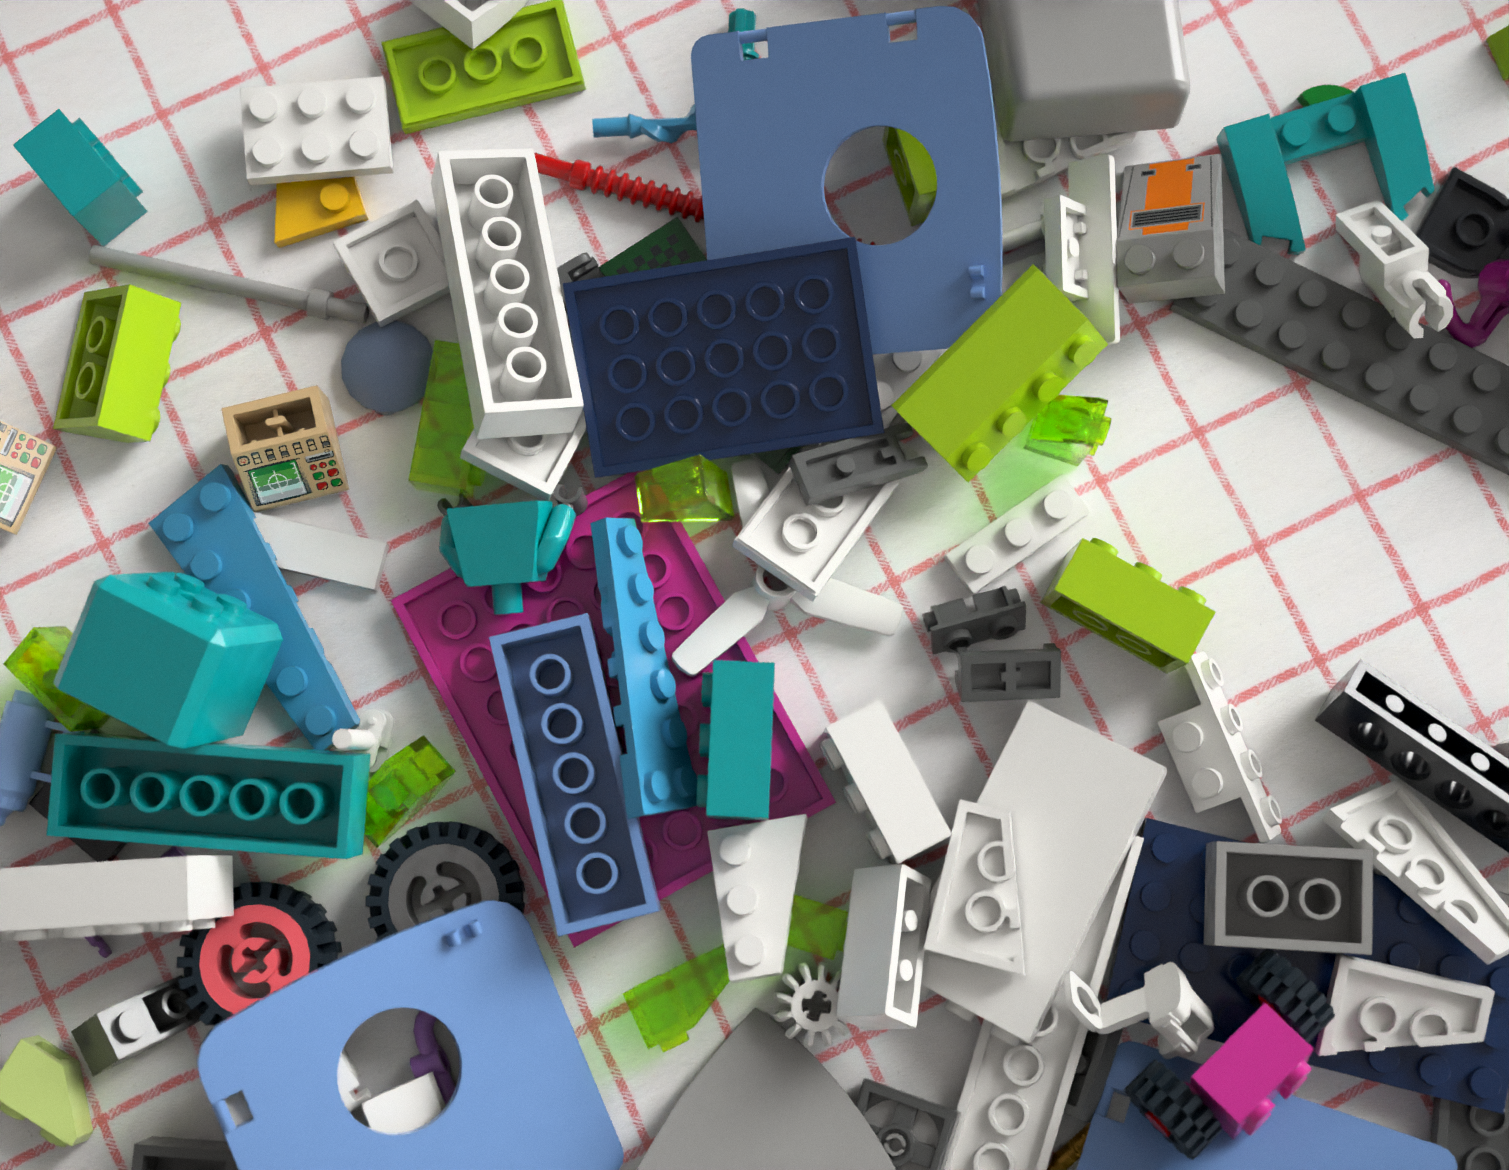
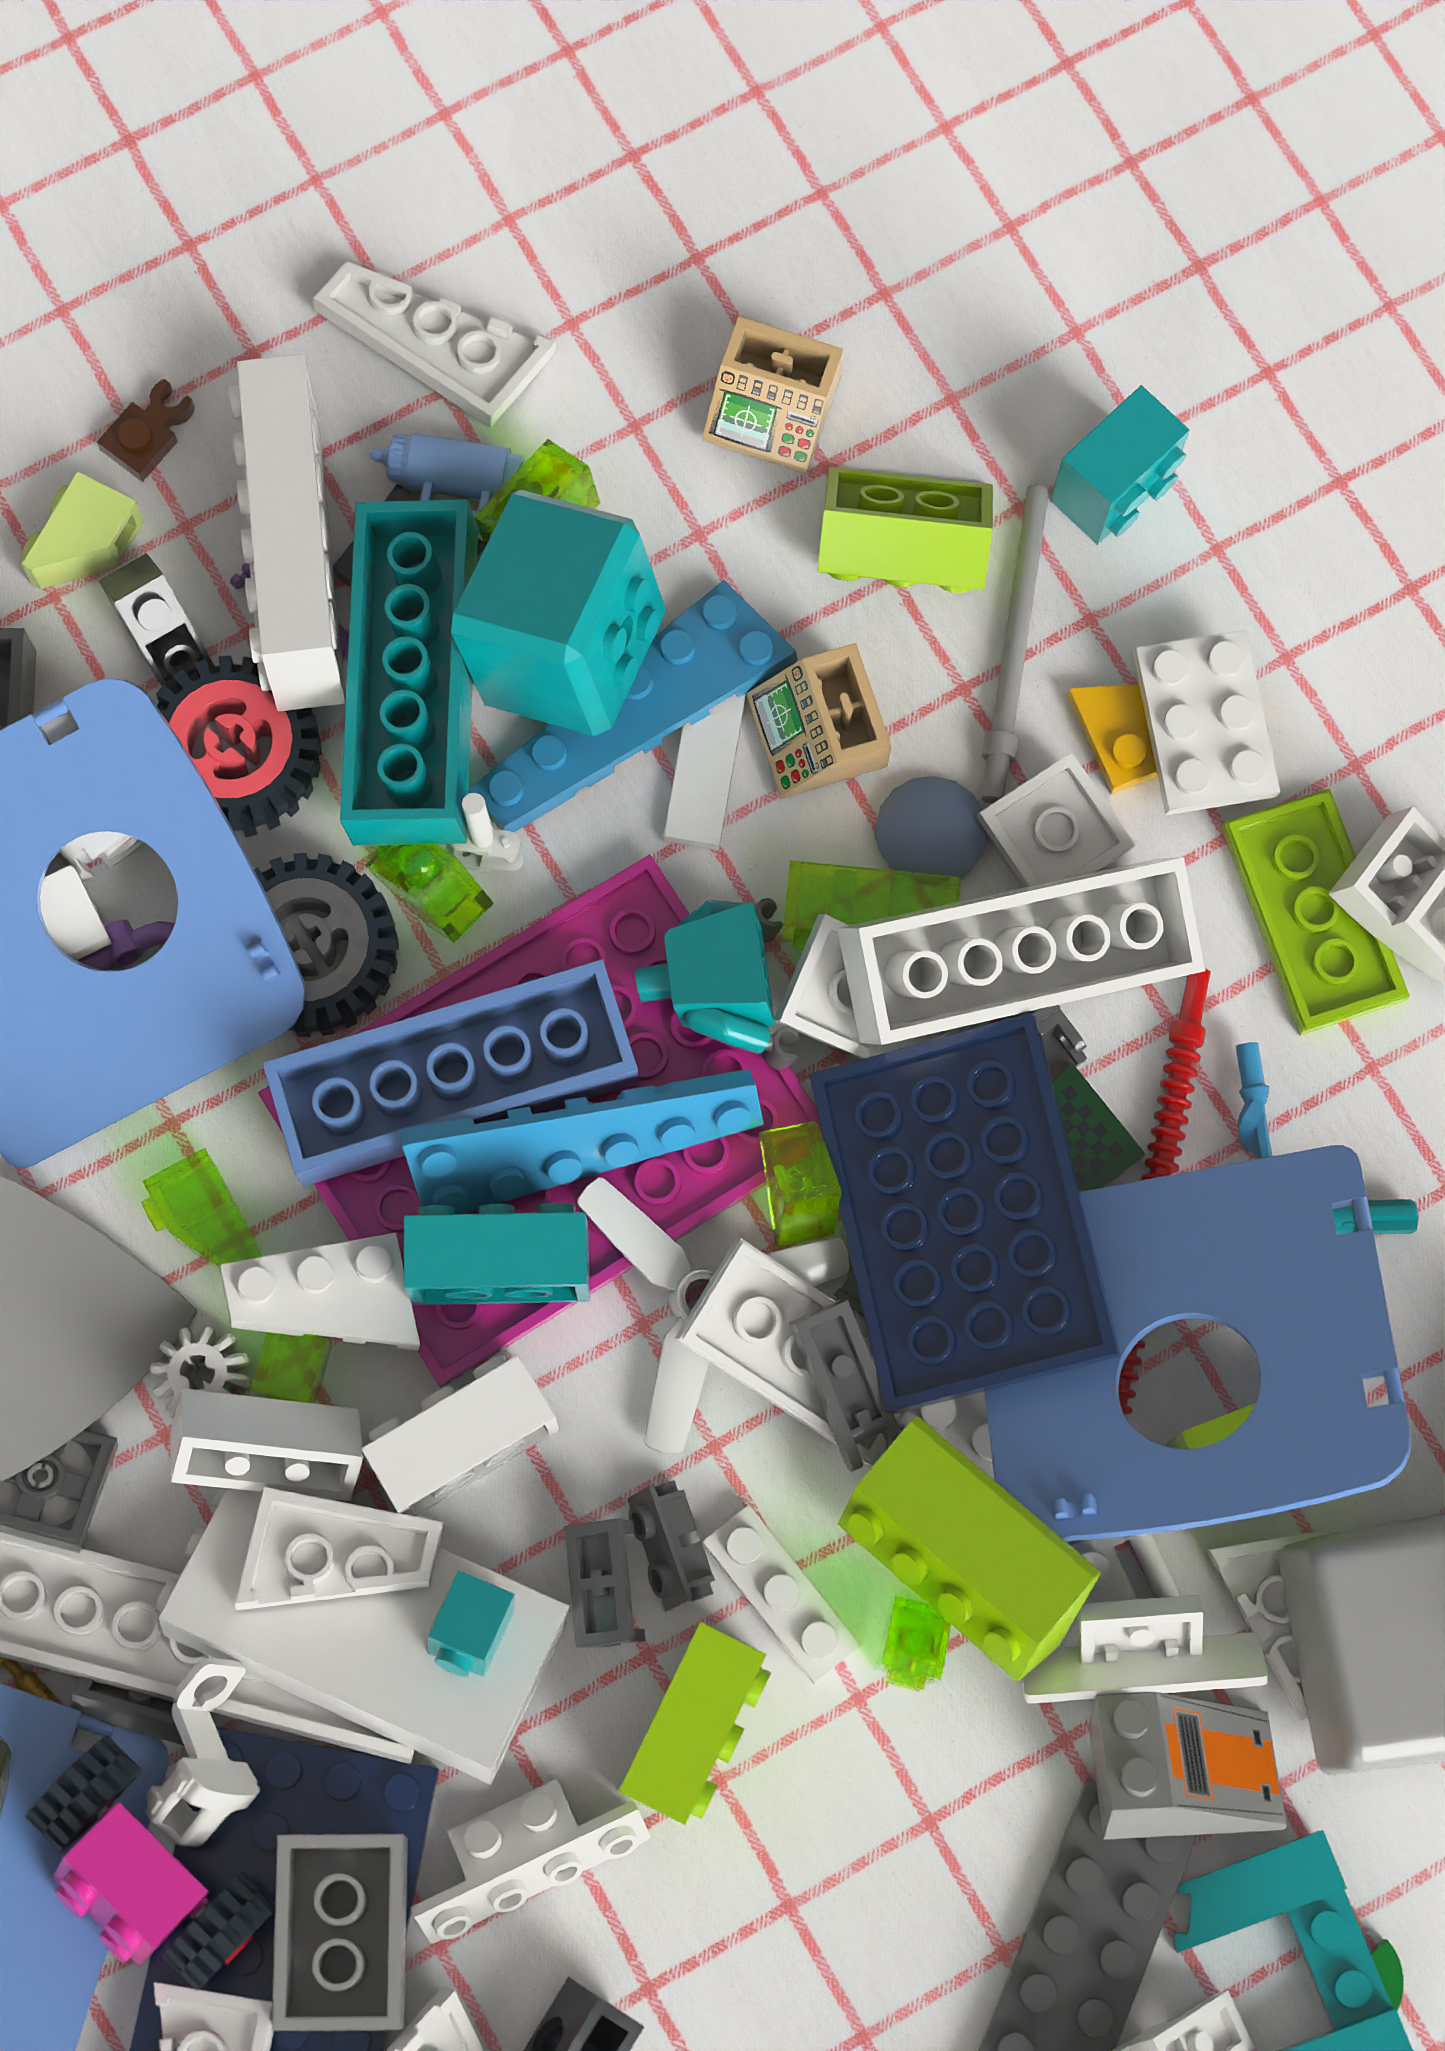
camera: 85 degrees right, 5 degrees down
(1049, 778) = (470, 1625): none -> teal brick

